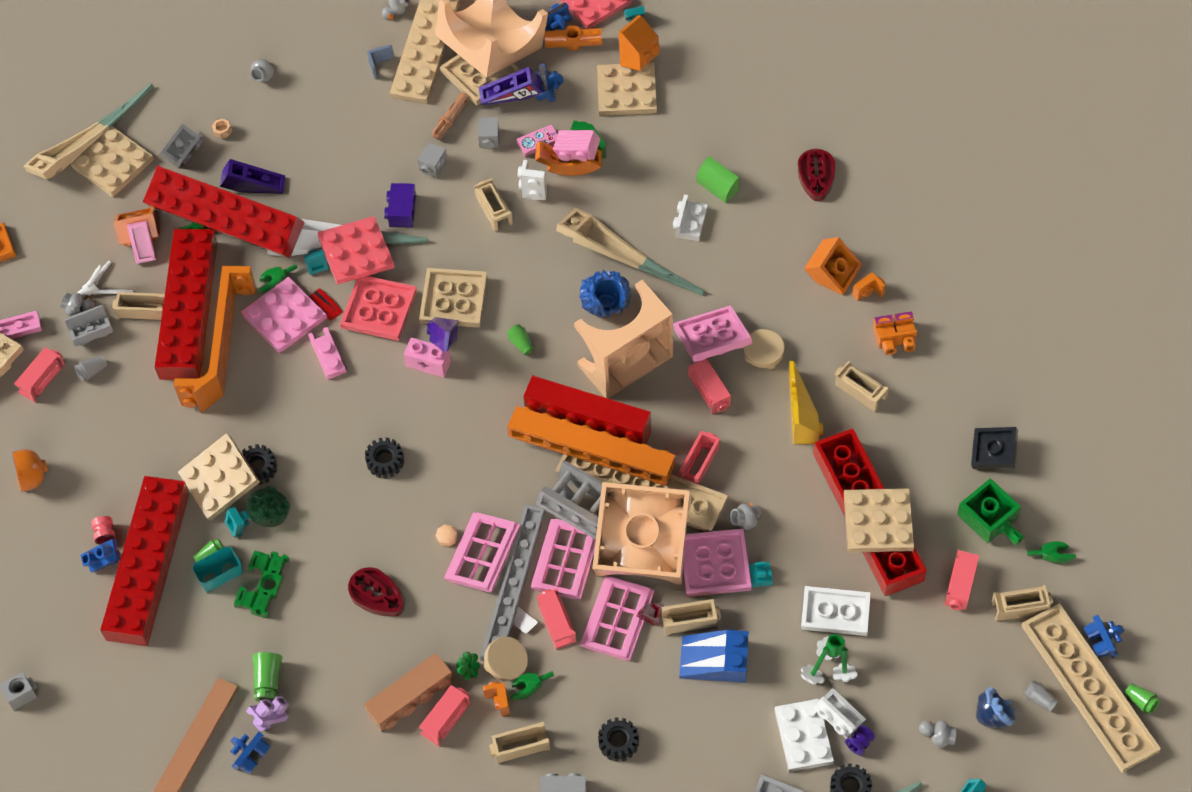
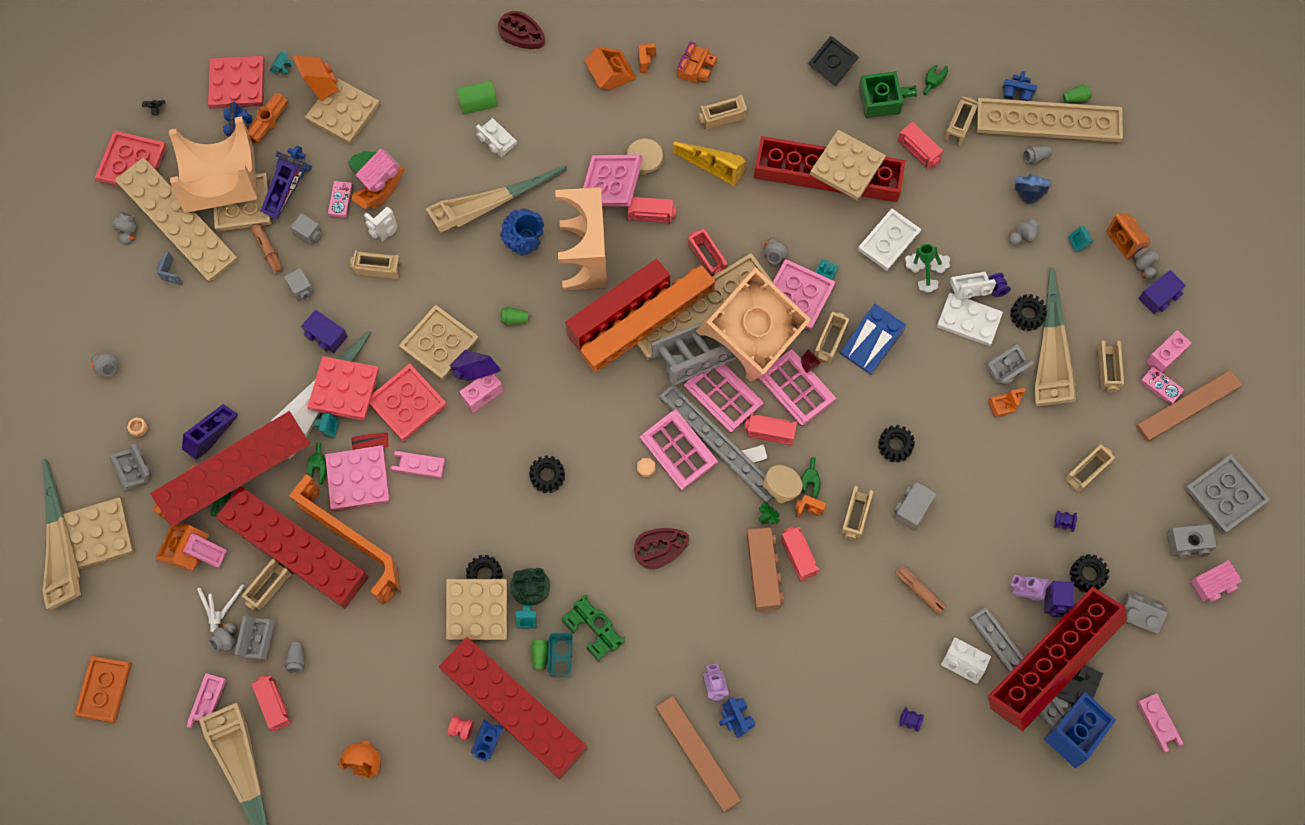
camera: 60 degrees left, 10 degrees up
(266, 675) = (681, 668): bright green plant -> none

